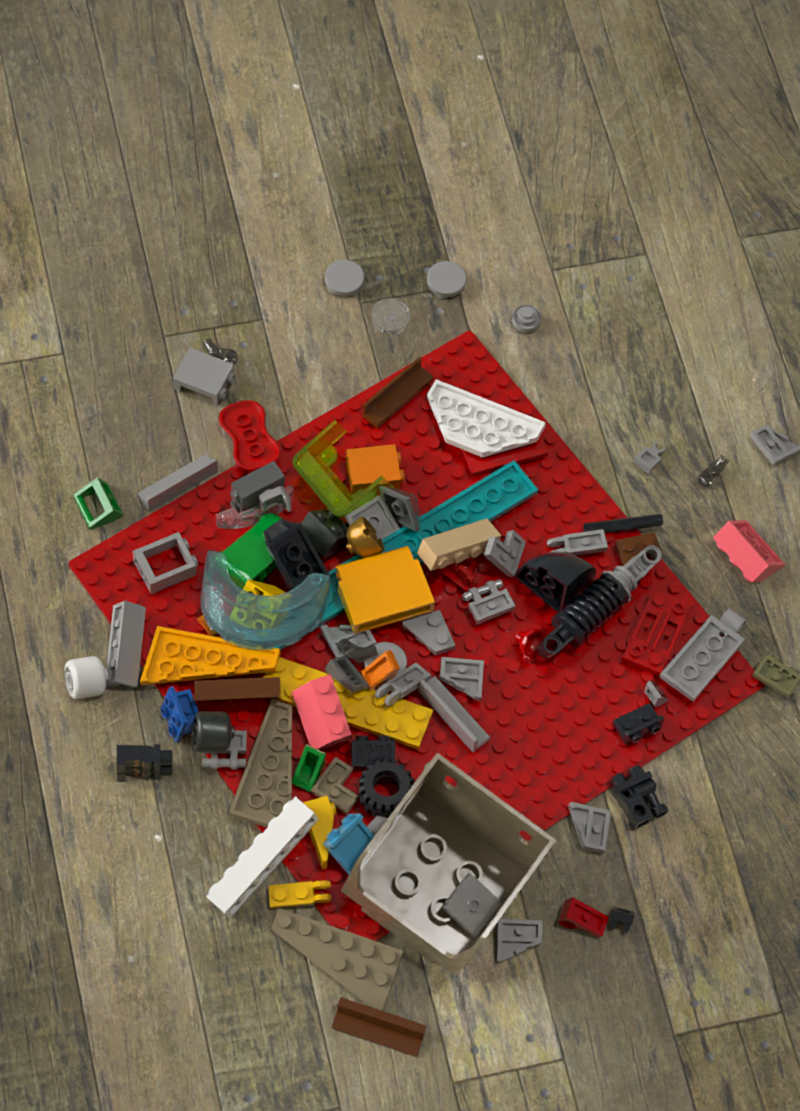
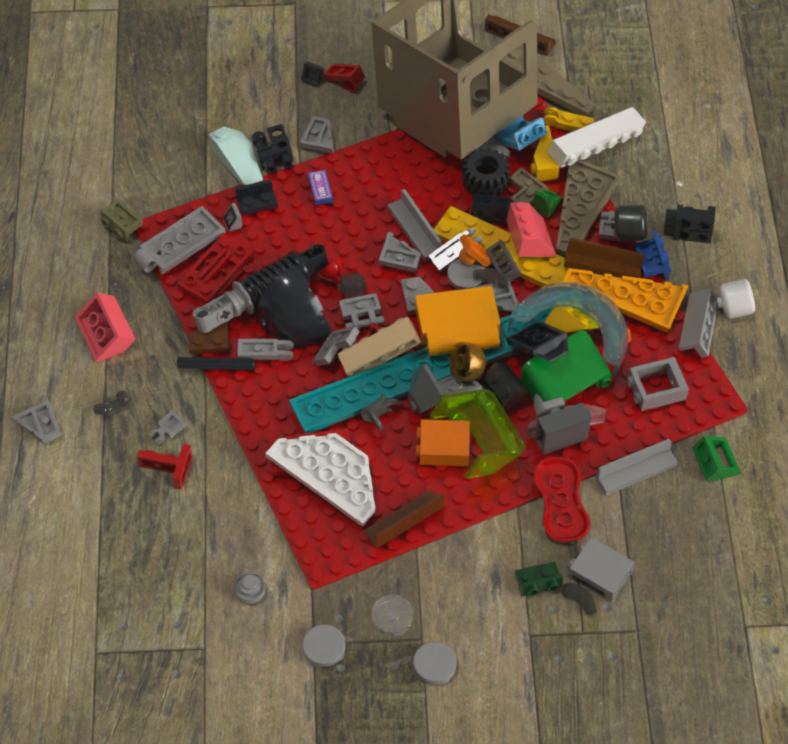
camera: 165 degrees left, 5 degrees down
(261, 363) = (538, 579): none -> dark green bracket
(448, 493) = (378, 408): none -> dark grey piece
(505, 627) = (352, 285): none -> clear smoke head
(571, 752) = (320, 187): none -> tile
(638, 419) = (168, 463): none -> red bracket
(678, 783) = (236, 154): none -> light aqua wedge

